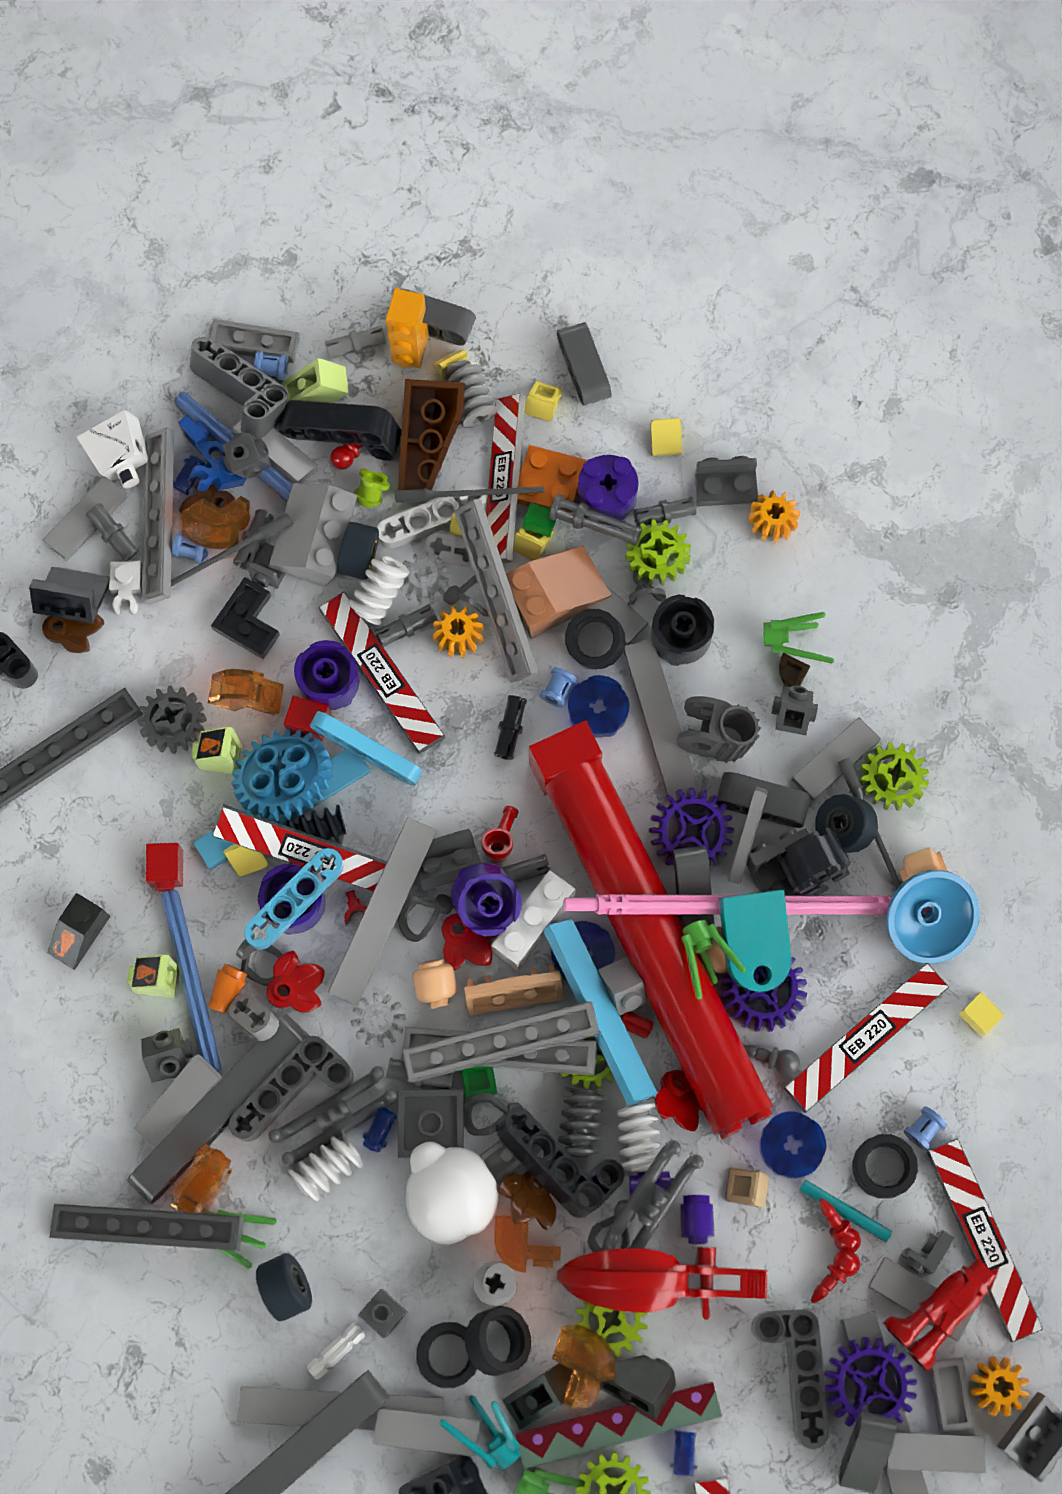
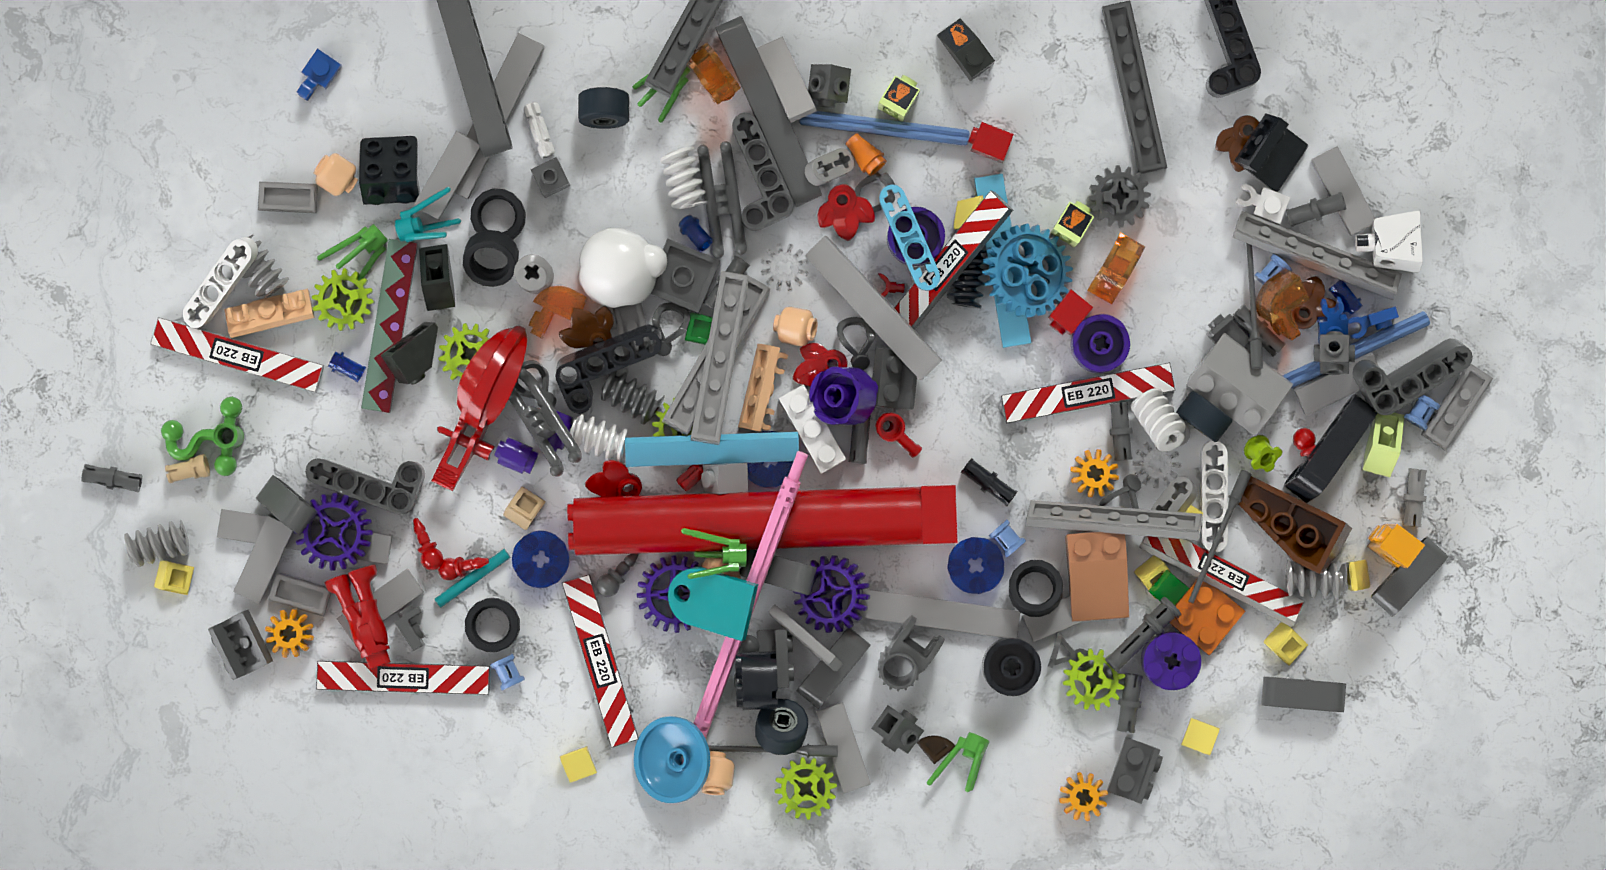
camera: 110 degrees right, 15 degrees up
(239, 619) = (1187, 288): black plate -> none
(366, 748) = (1019, 350): medium azure beam -> none
(589, 1358) = (447, 321): clear orange brick -> none

